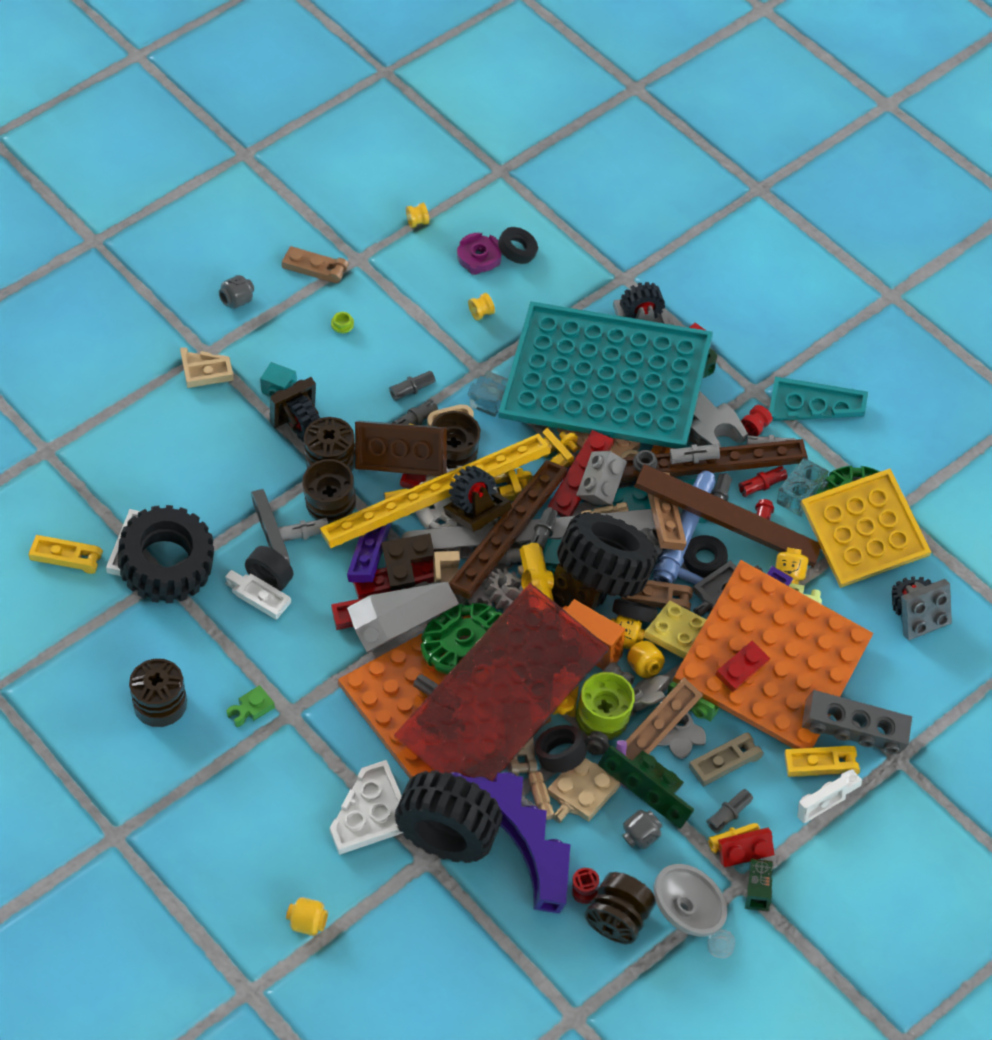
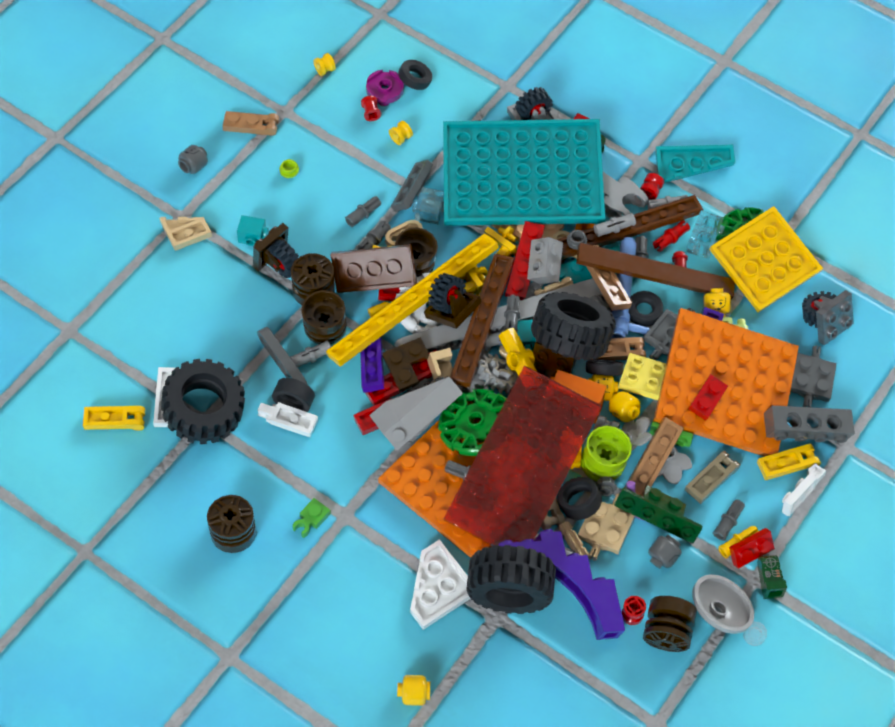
camera: 15 degrees left, 5 degrees up
(455, 277) = (372, 112): none -> red bush
(476, 367) = (411, 185): none -> dark grey plate
(881, 672) = (813, 377): none -> dark grey plate

